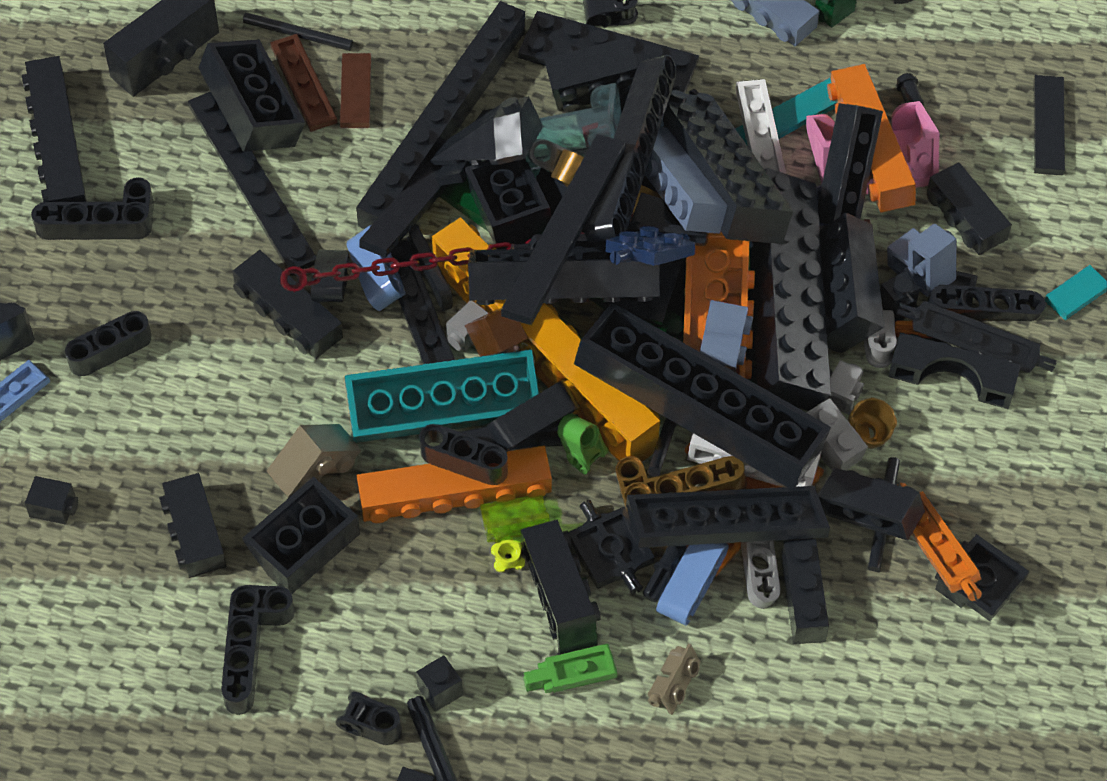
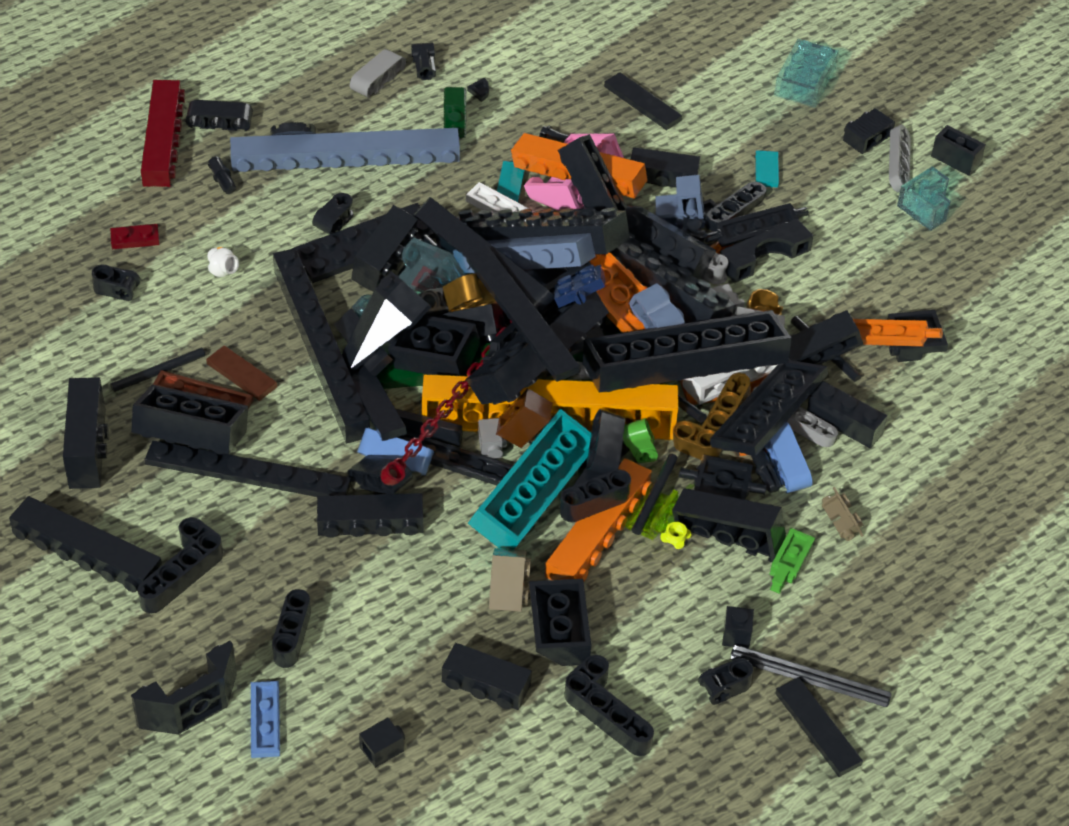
camera: 50 degrees left, 10 degrees down
(530, 501) = (654, 494): none -> black bar

